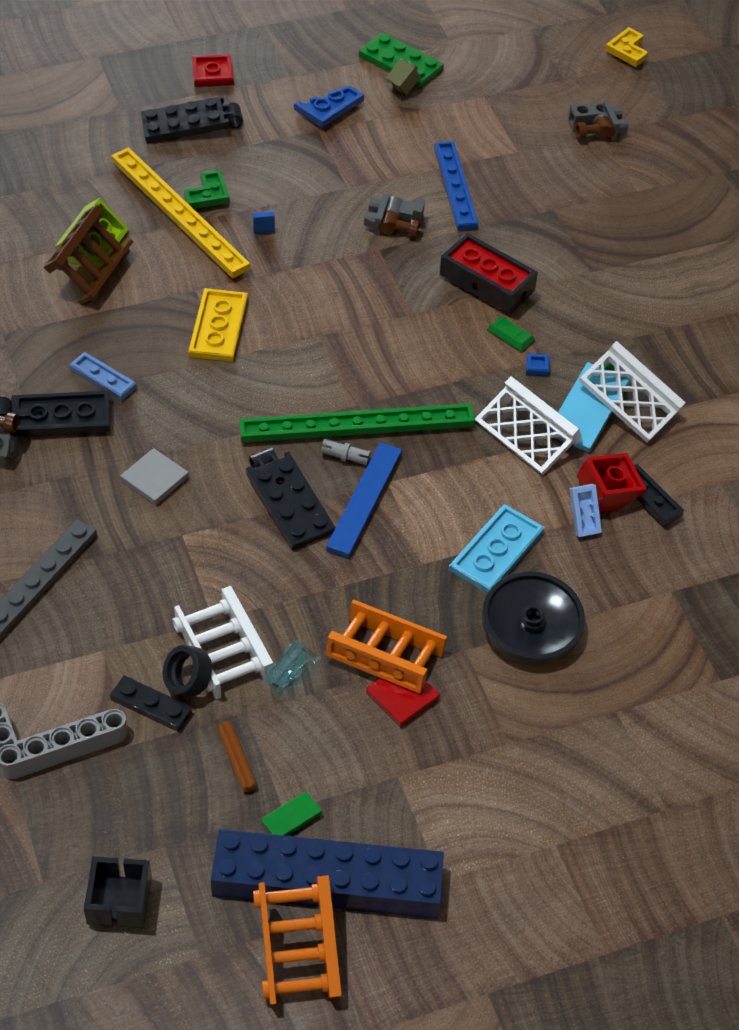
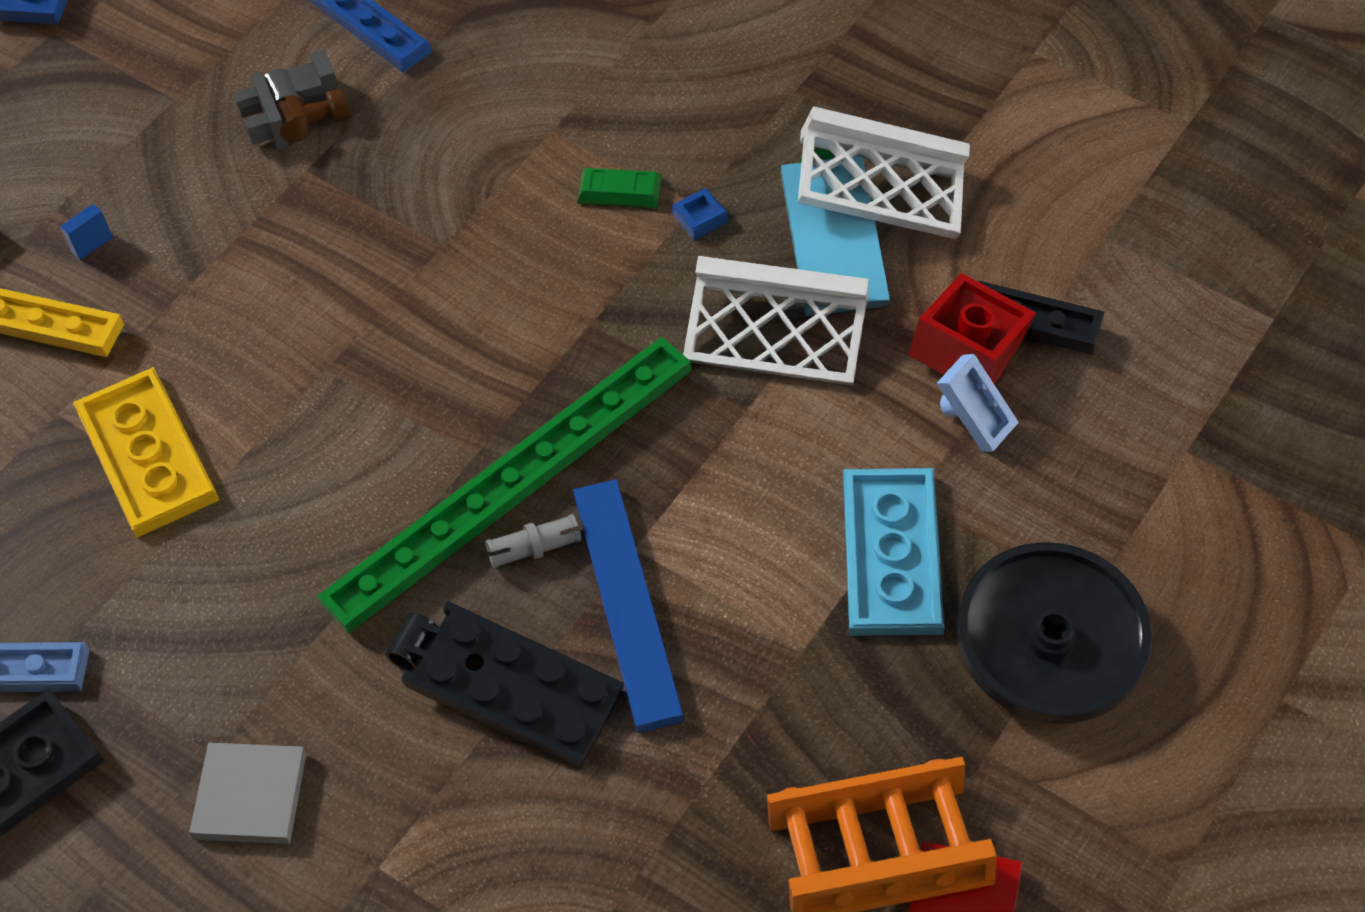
camera: 30 degrees left, 5 degrees up
(488, 273) = (514, 111): black brick -> none

